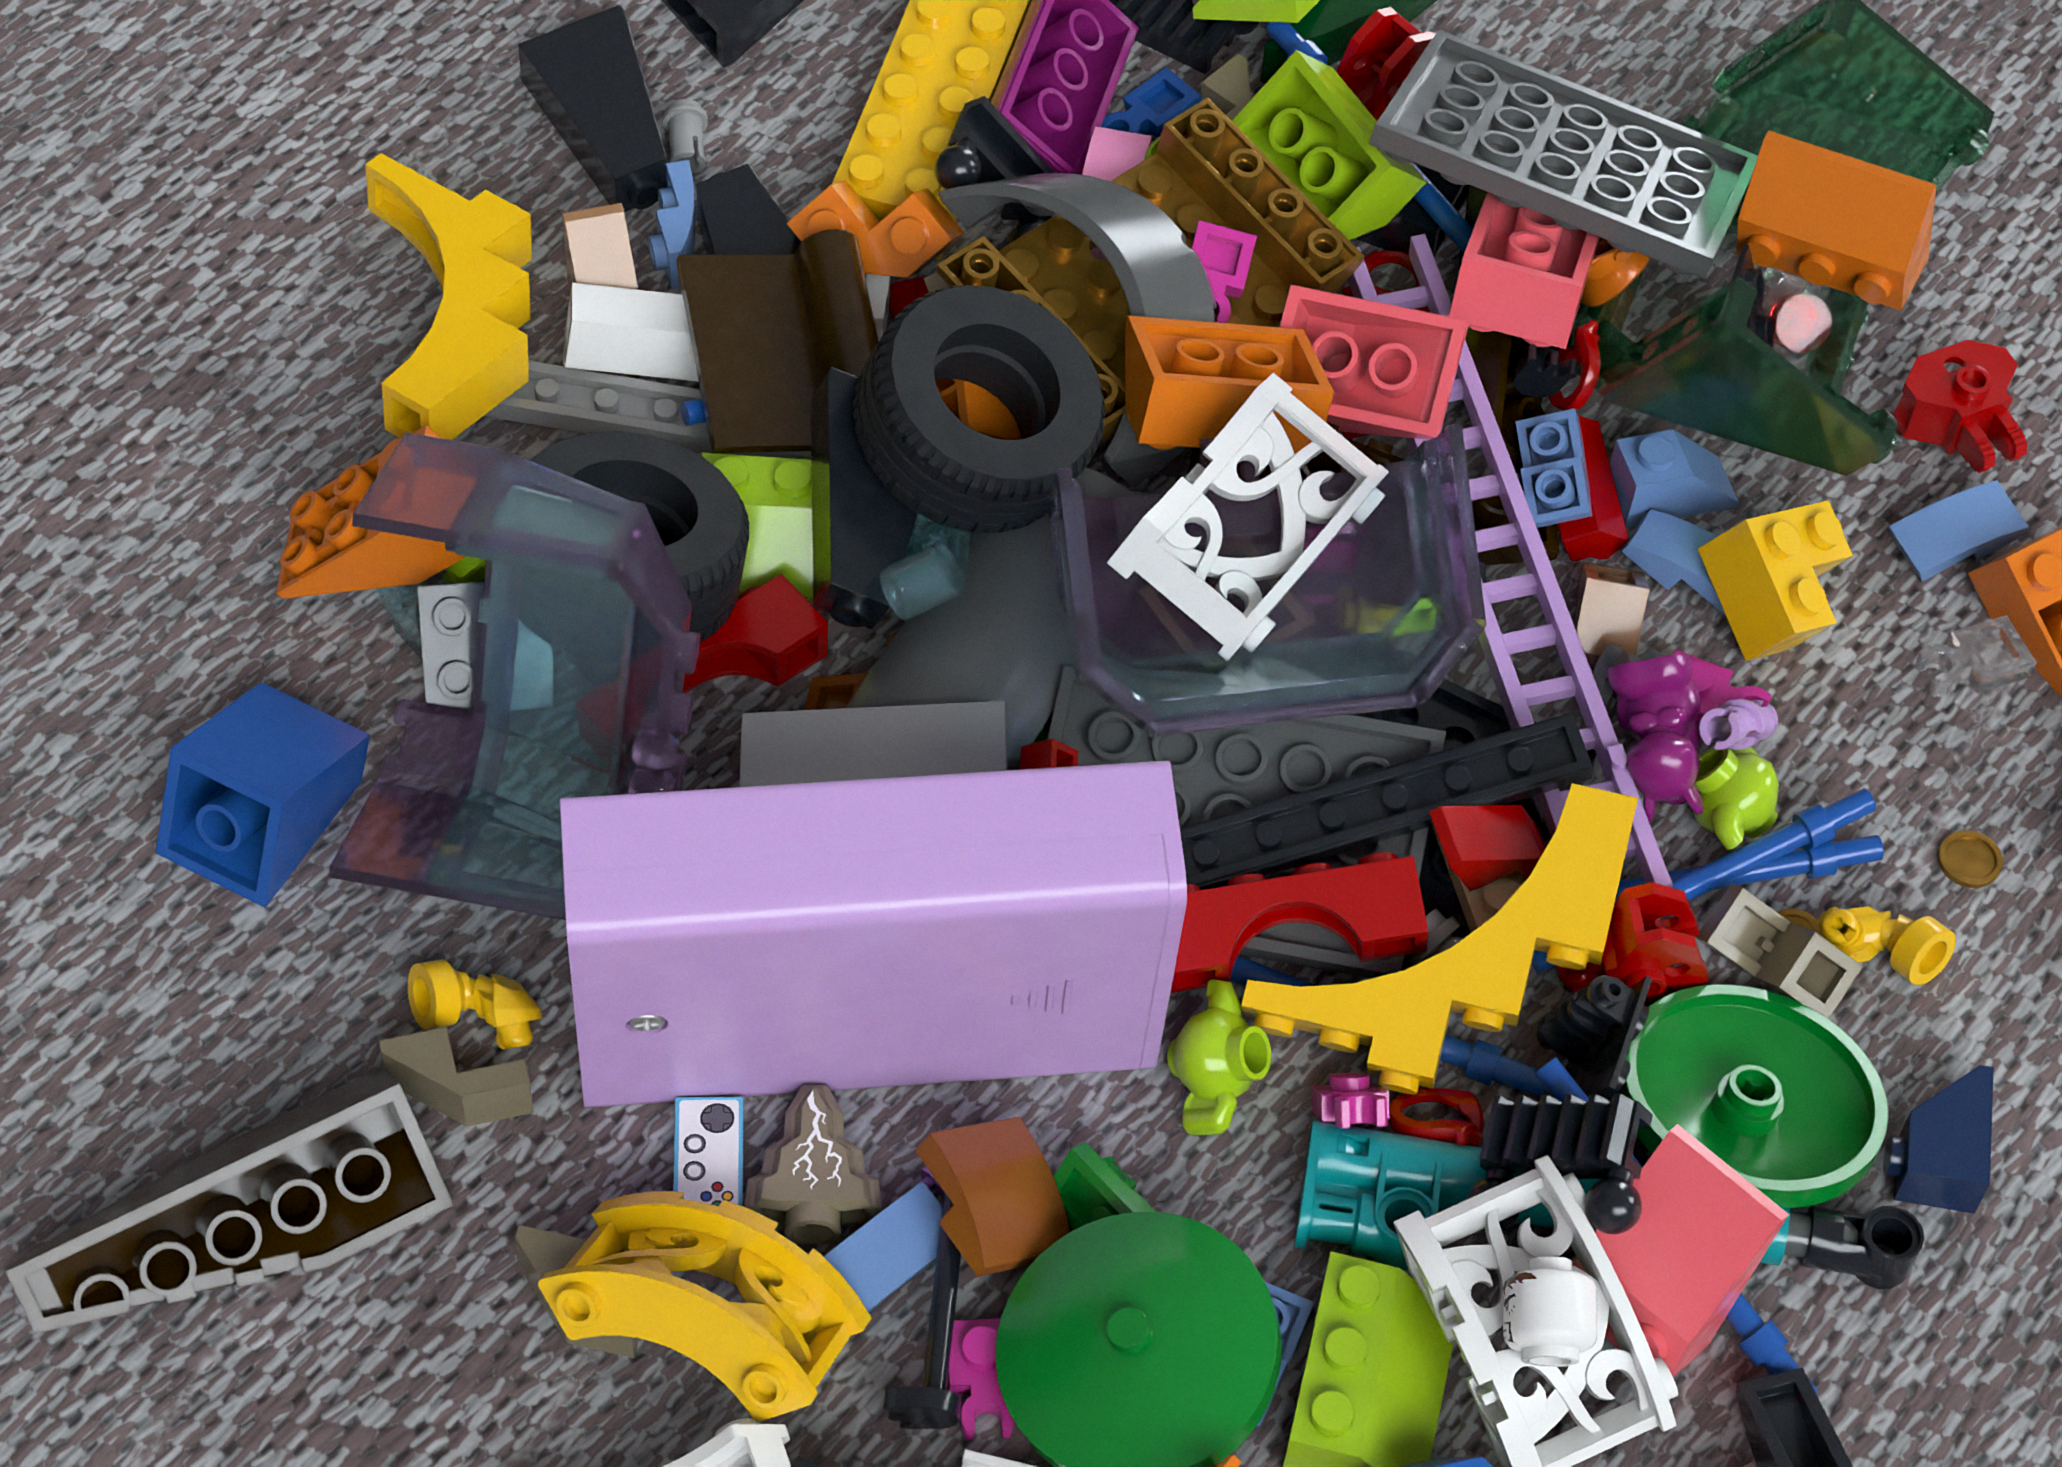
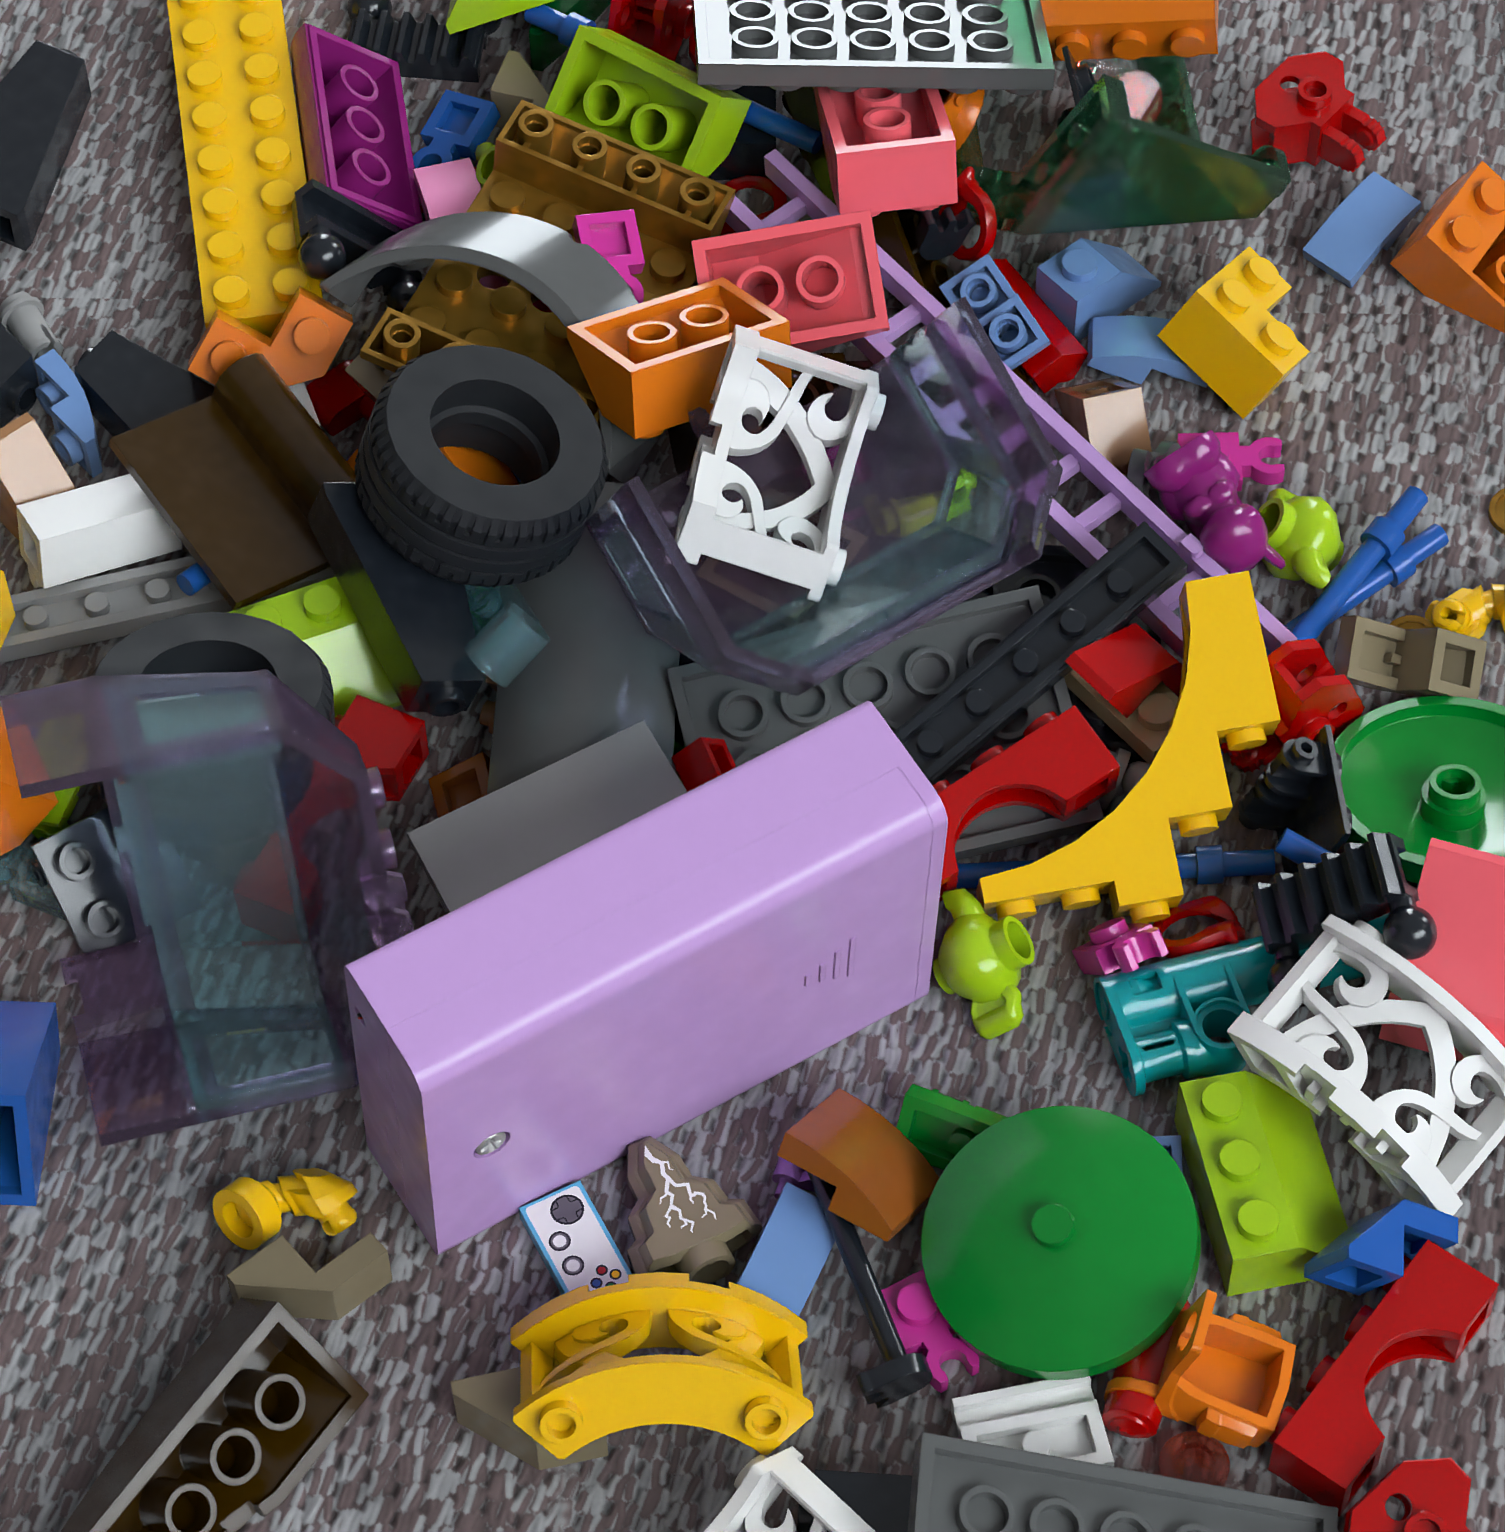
camera: 20 degrees left, 0 degrees up
(1550, 1312) = (1405, 1047): white head -> none
(1735, 730) = (1266, 484): lavender pin -> none
(1983, 654) = (1438, 329): clear plate -> none

